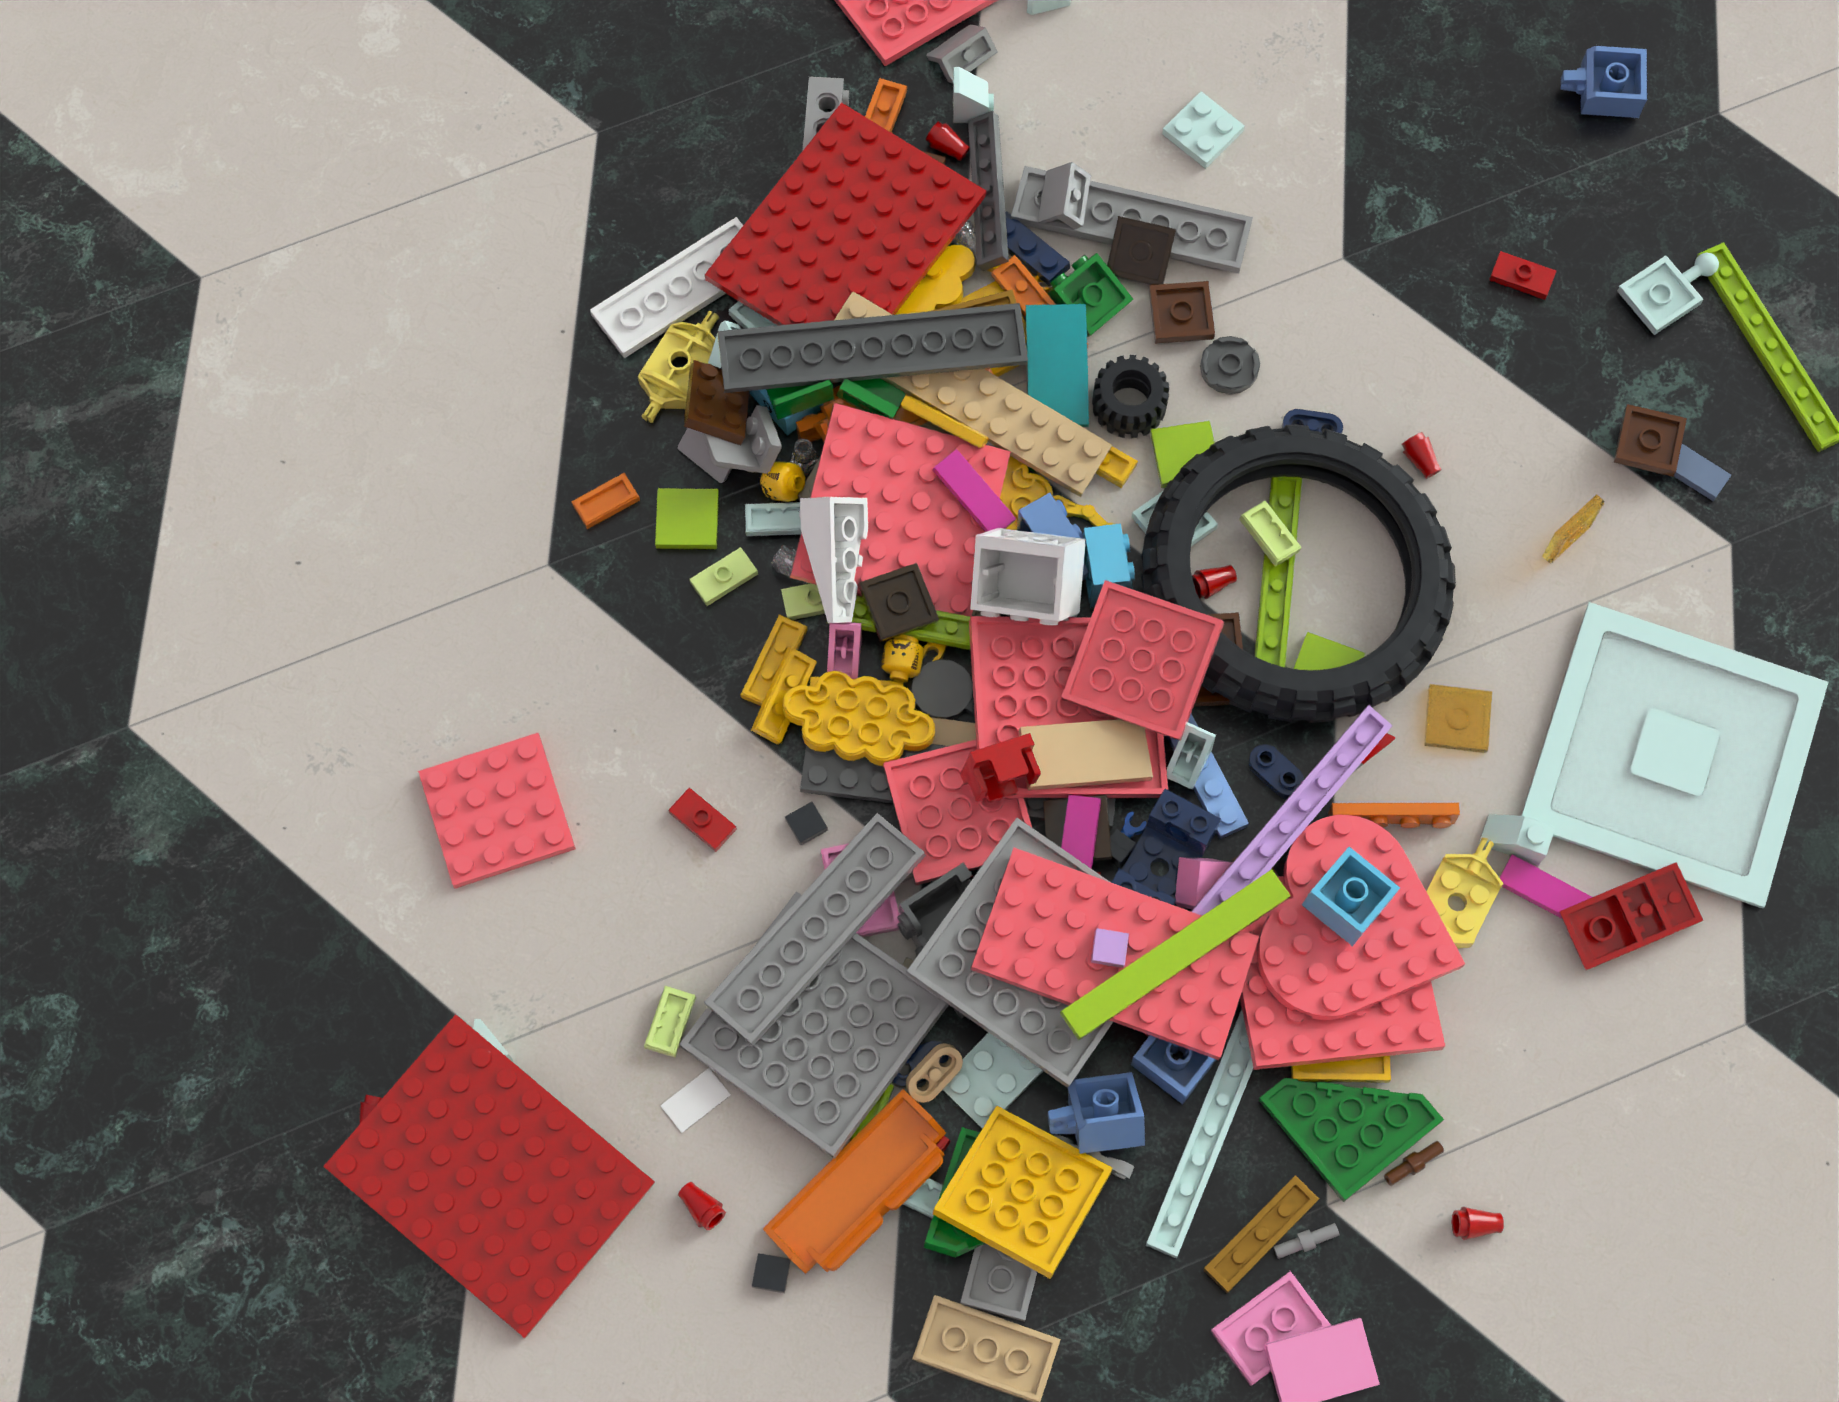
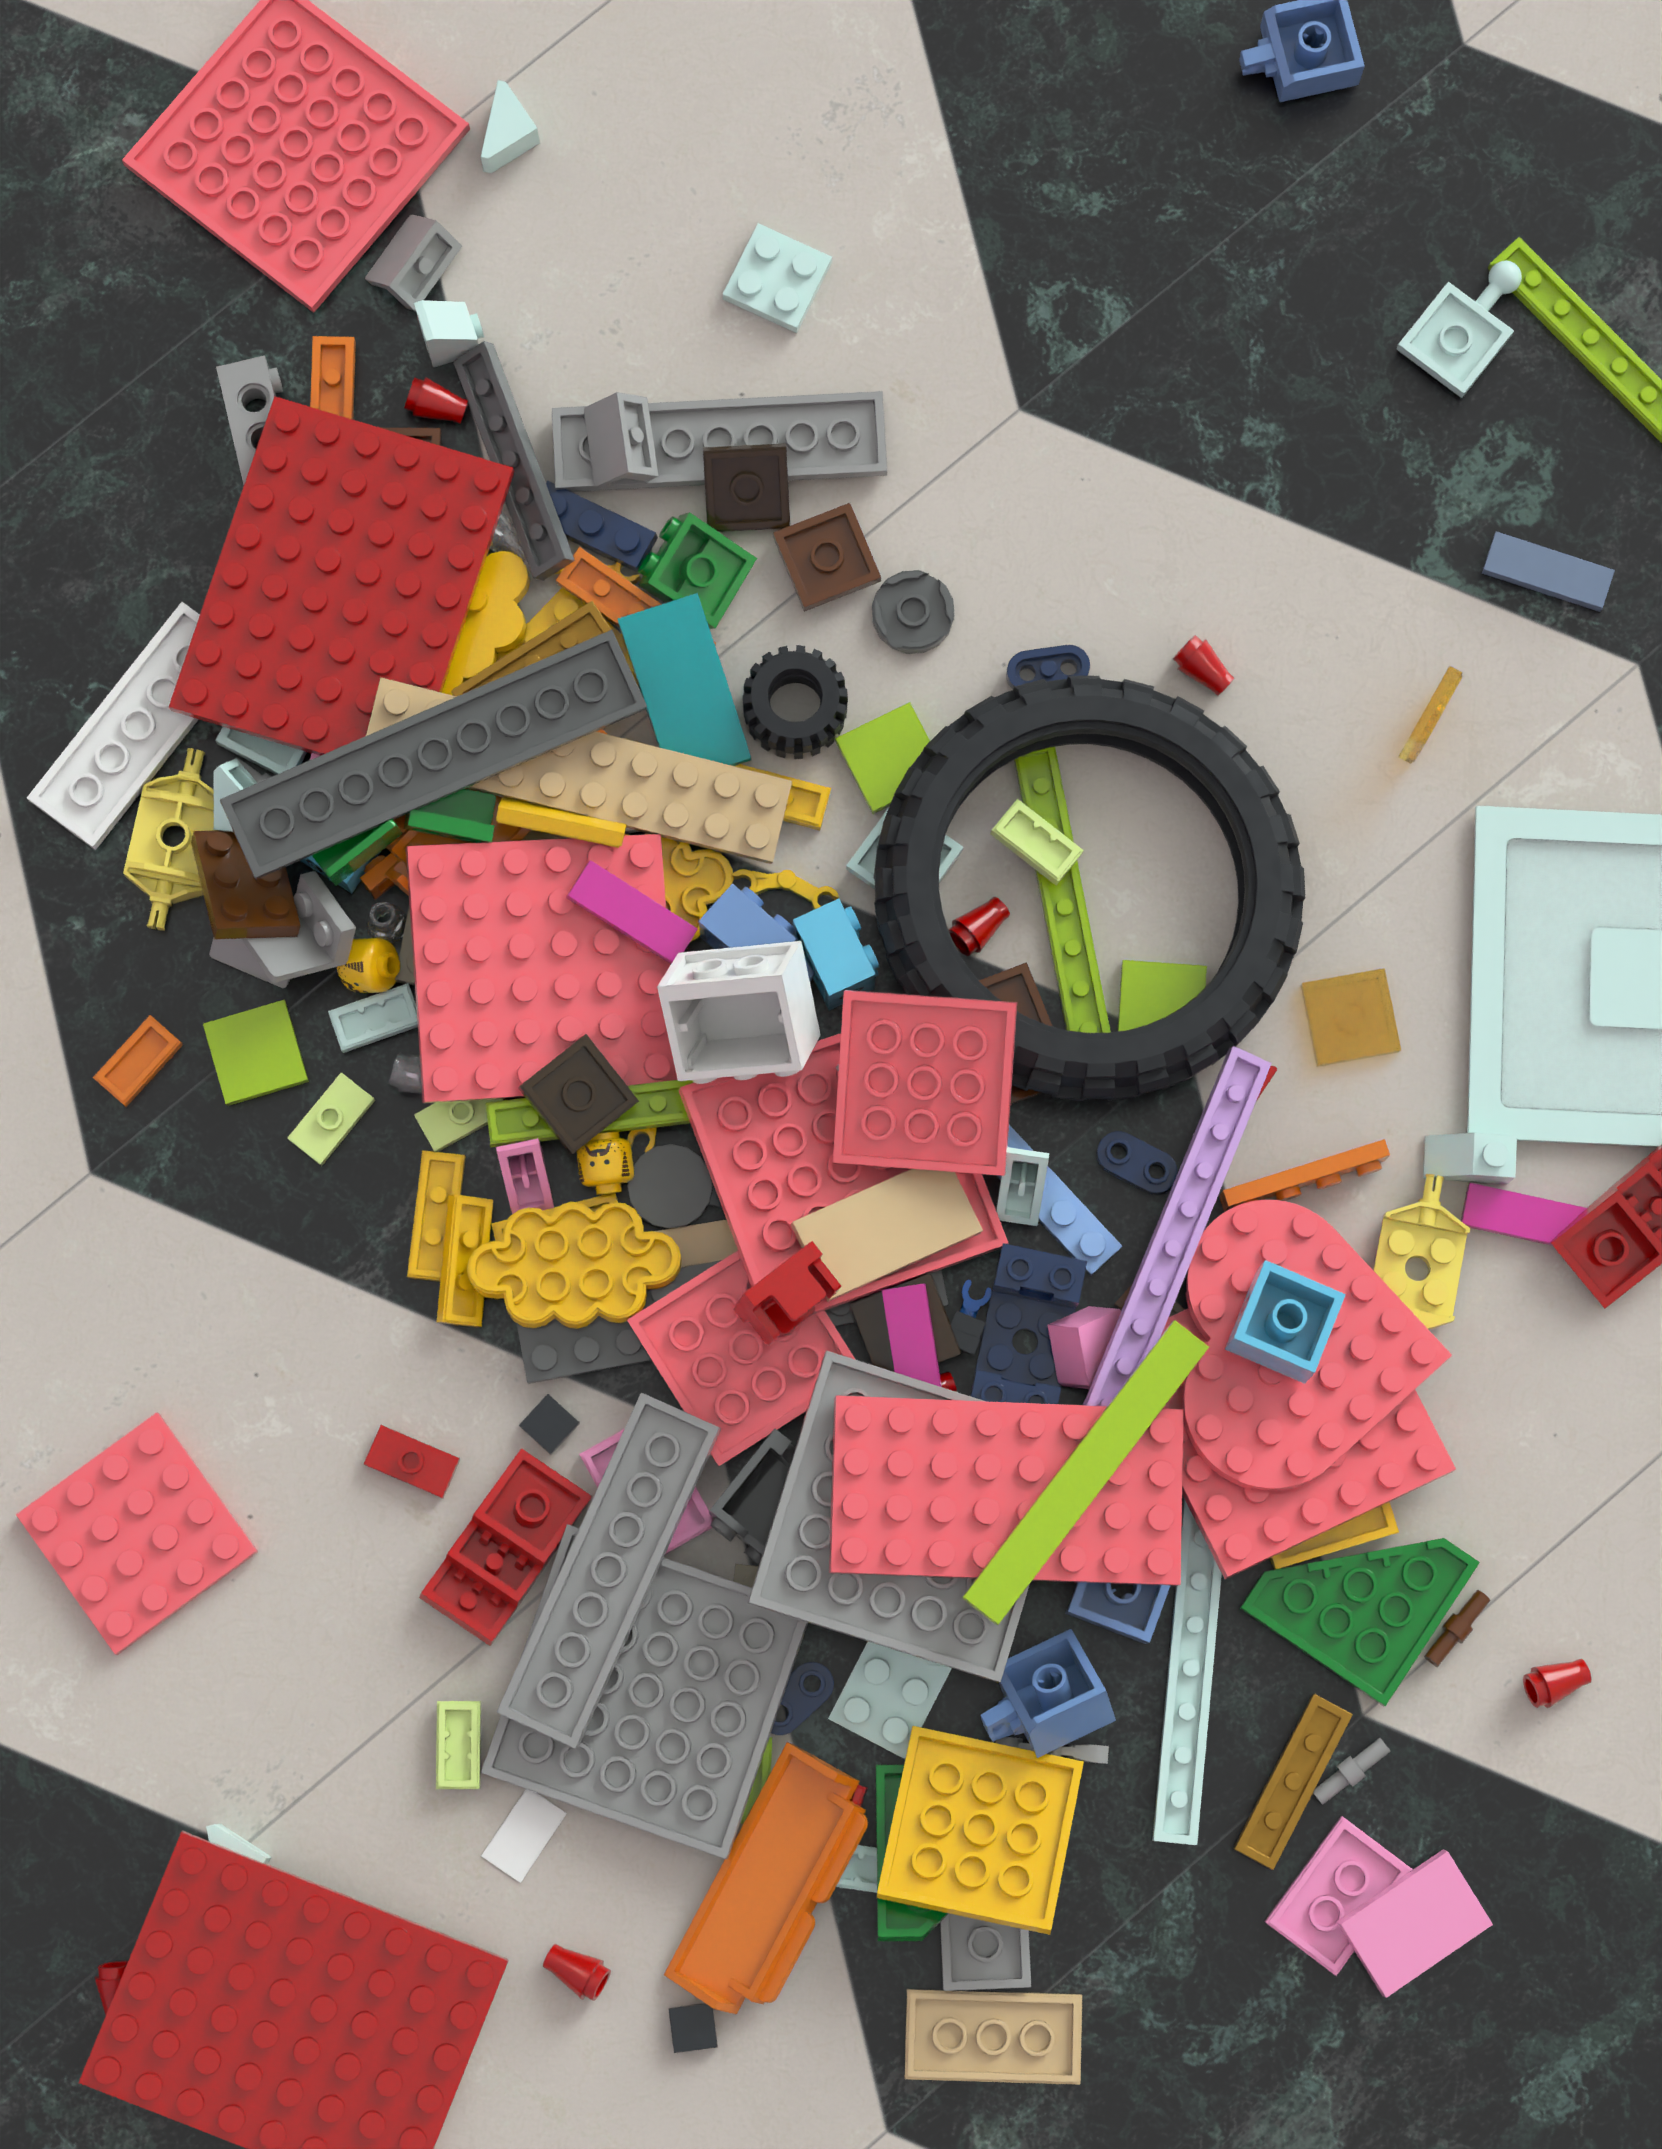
camera: 20 degrees left, 10 degrees up
(746, 896) = (505, 1547): none -> red slope
(833, 538) = (466, 1043): white wedge -> none
(935, 1073) = (821, 1707): tan plate -> none
(1109, 948) = (999, 1492): lavender tile -> none
(1522, 275) = (1265, 364): red plate -> none
(1650, 440) = (1496, 556): reddish brown plate -> none

